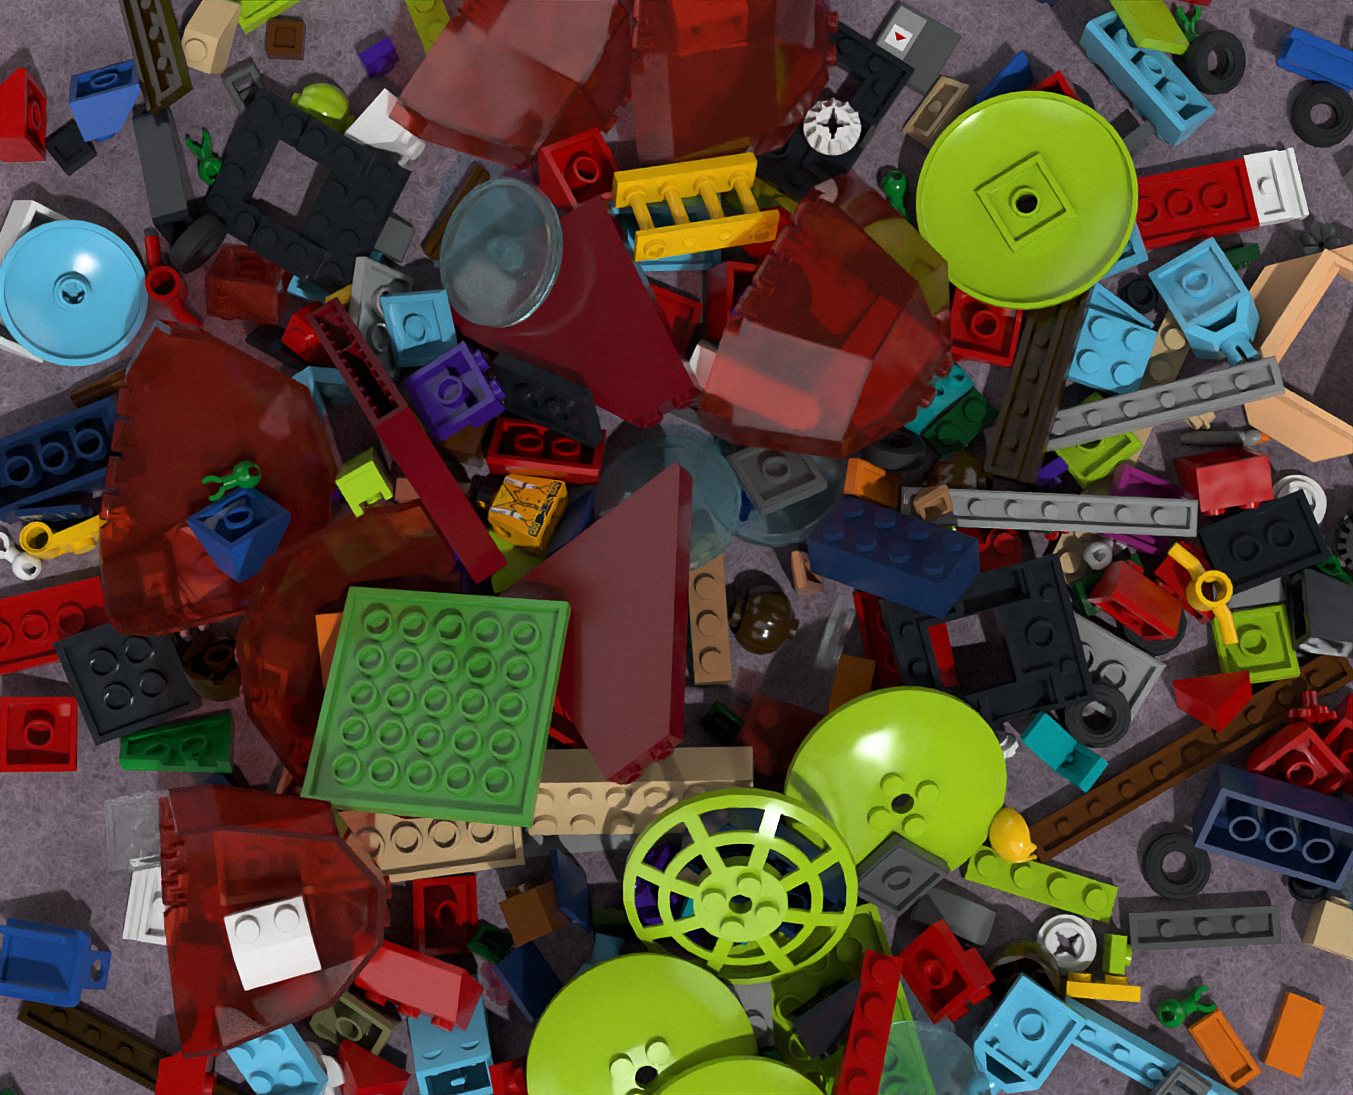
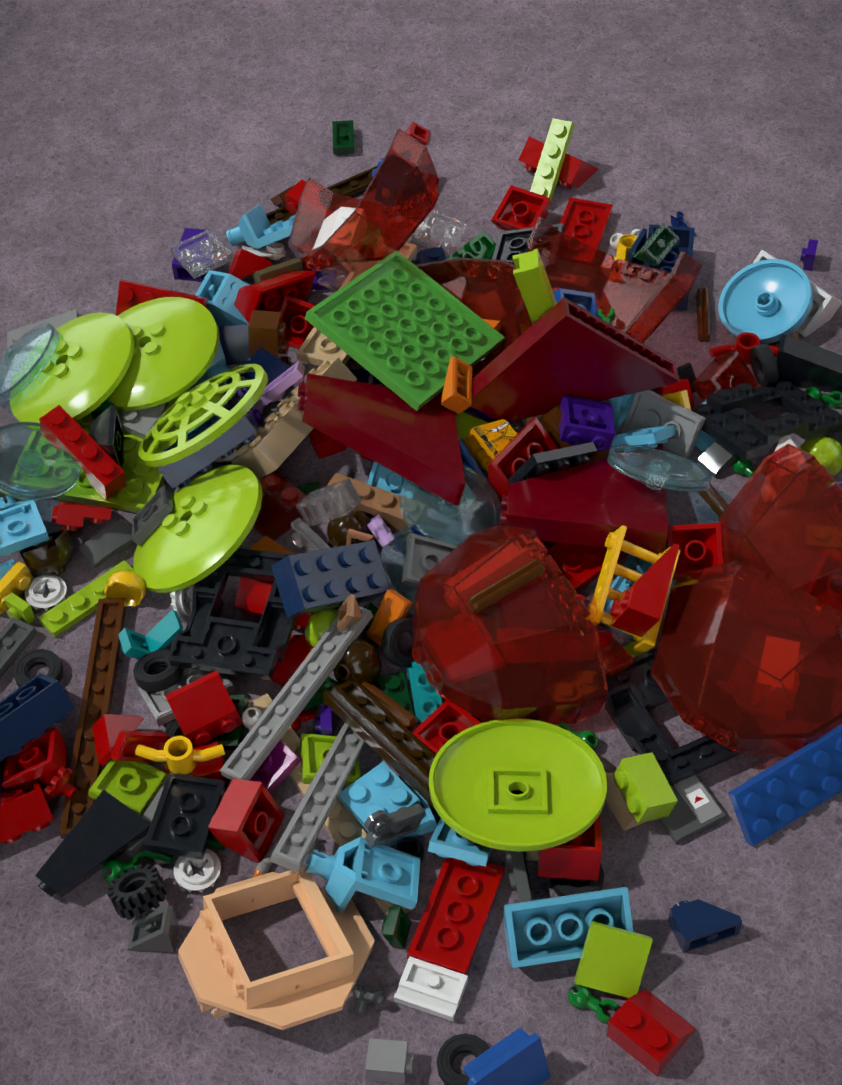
camera: 125 degrees right, 30 degrees down
(43, 481) = (657, 245): none -> clear green slope
(493, 580) = (455, 394): none -> orange slope
(587, 856) = (277, 387): none -> lavender plate
(713, 166) = (644, 601): none -> red slope
(763, 651) = (329, 502): none -> clear brick
(766, 557) = (380, 530): none -> lavender plate
(790, 189) = (615, 658): none -> clear red plate
(819, 136) = (653, 715): white gear -> none
(839, 295) = (506, 585): none -> reddish brown axle
(935, 82) = (645, 787): none -> lime brick
(988, 413) = (393, 707): none -> reddish brown axle
(1012, 78) = (618, 844): blue slope -> none
(1137, 302) = (394, 825): none -> dark grey hinge
(1197, 62) = (571, 1001): black tyre -> none
(1216, 653) = (129, 740): none -> red tile

